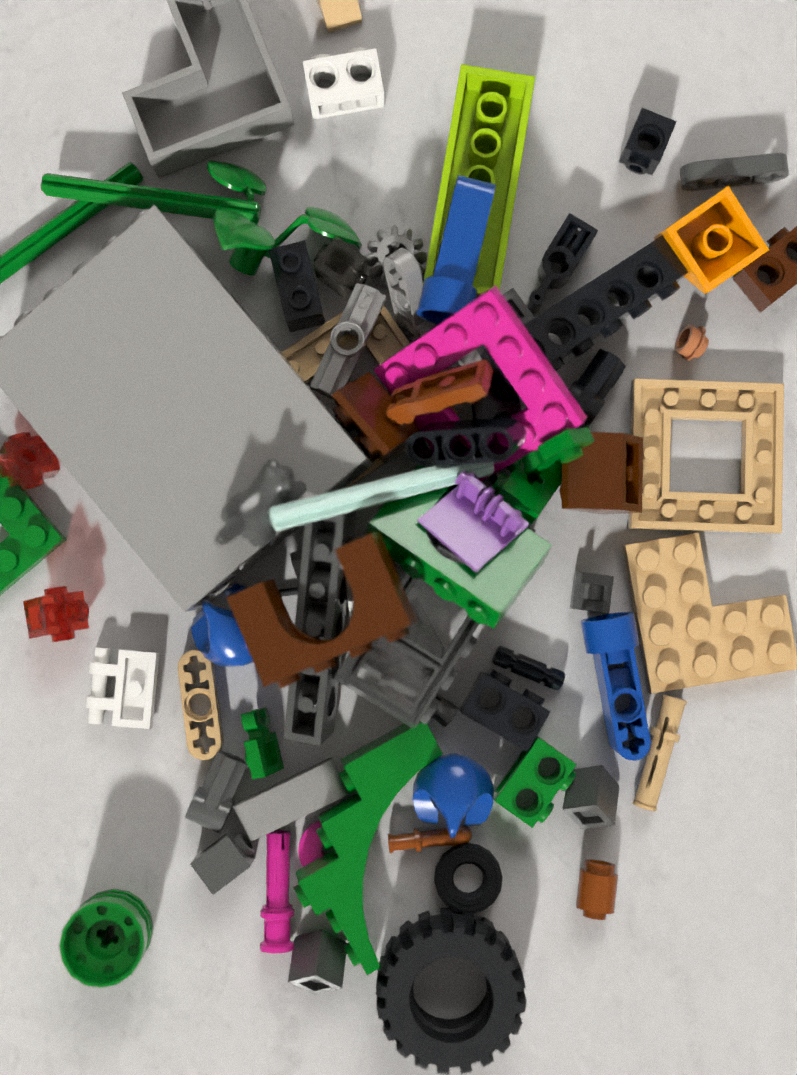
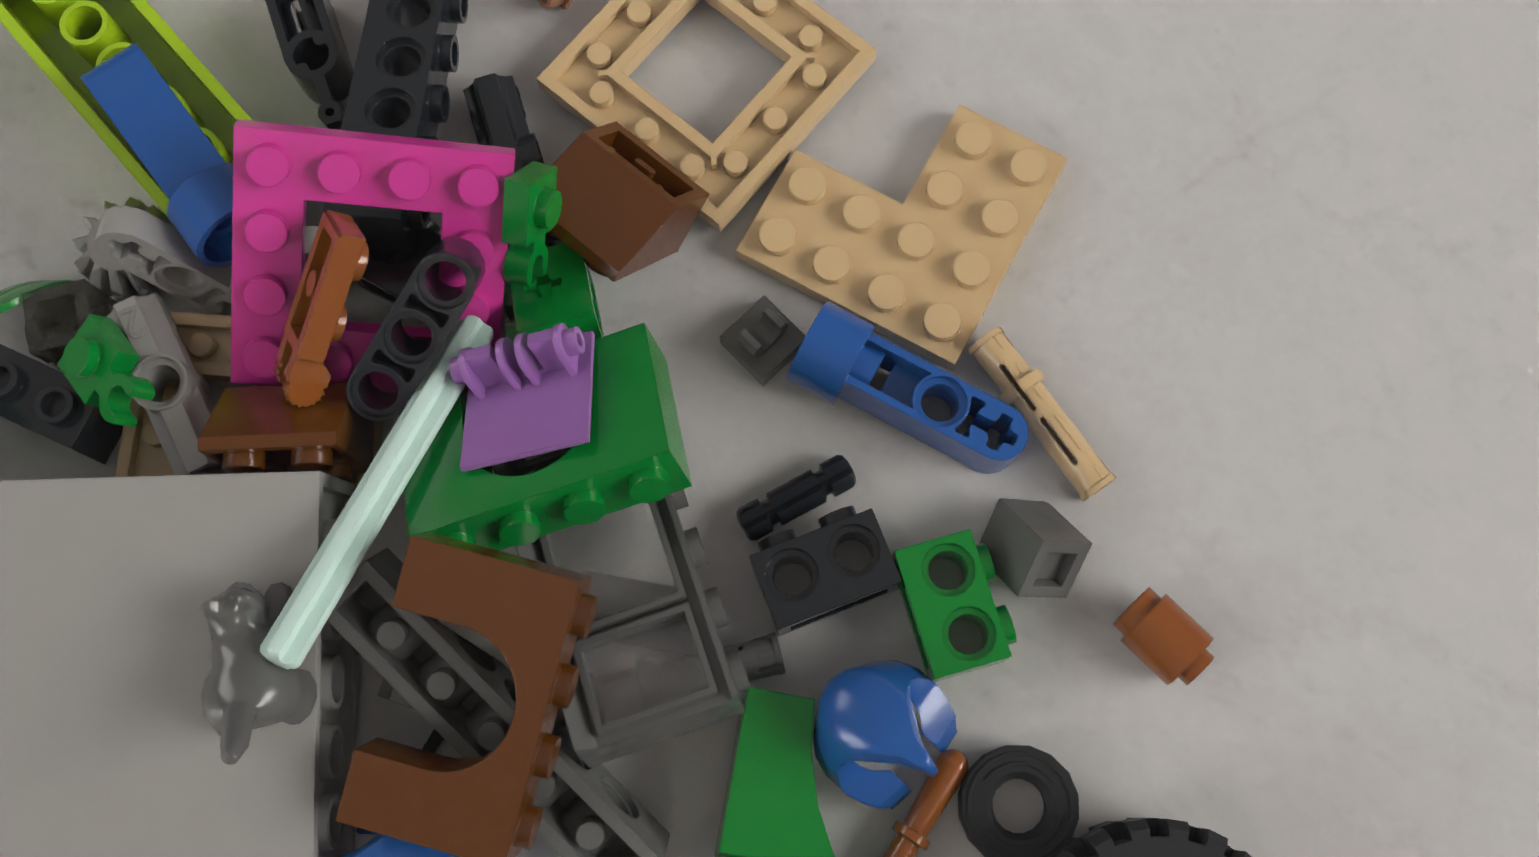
camera: 45 degrees left, 10 degrees down
(332, 306) = (100, 369): none -> green plate

